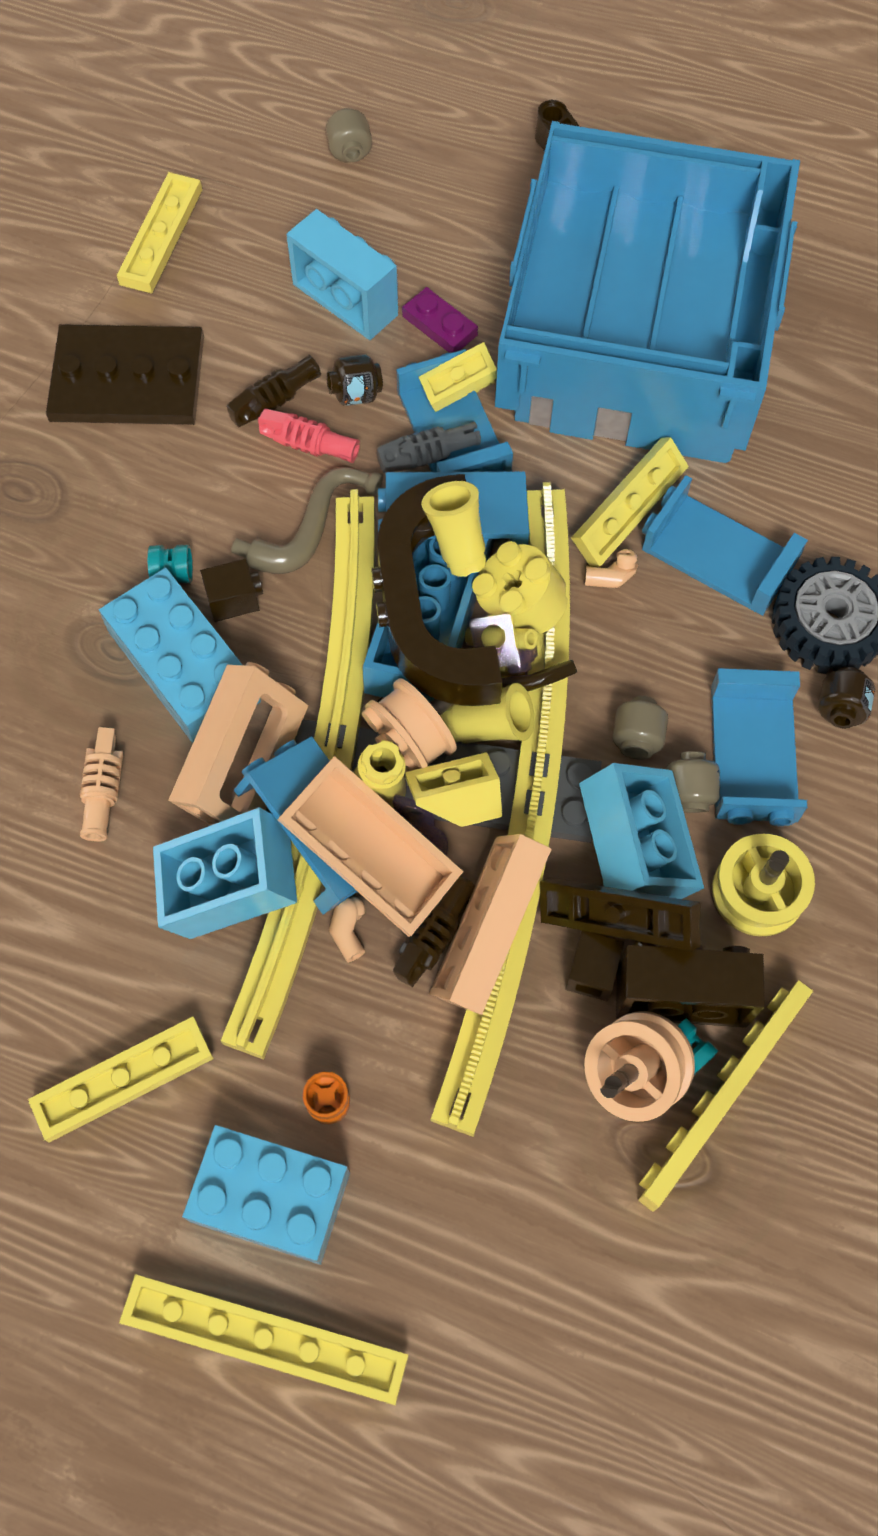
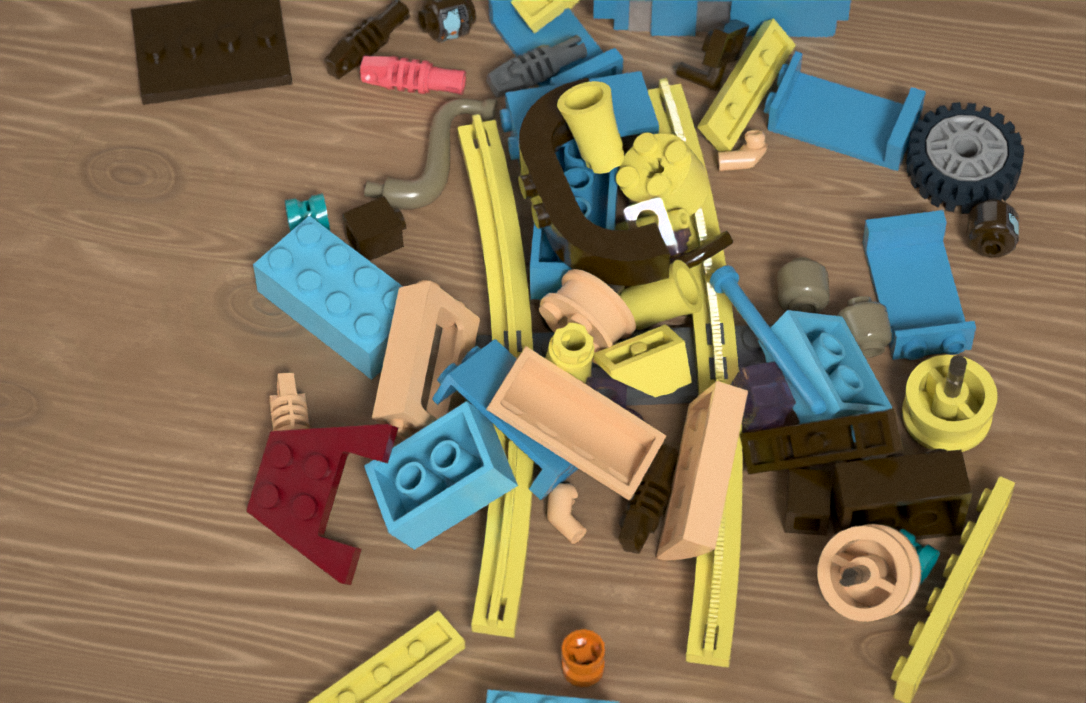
camera: 10 degrees left, 10 degrees down
(87, 856) = (300, 485): none -> dark red wing
(560, 713) = (726, 281): none -> dark azure bar
(572, 844) = (767, 396): none -> clear purple brick
(610, 460) = (720, 48): none -> dark brown plate

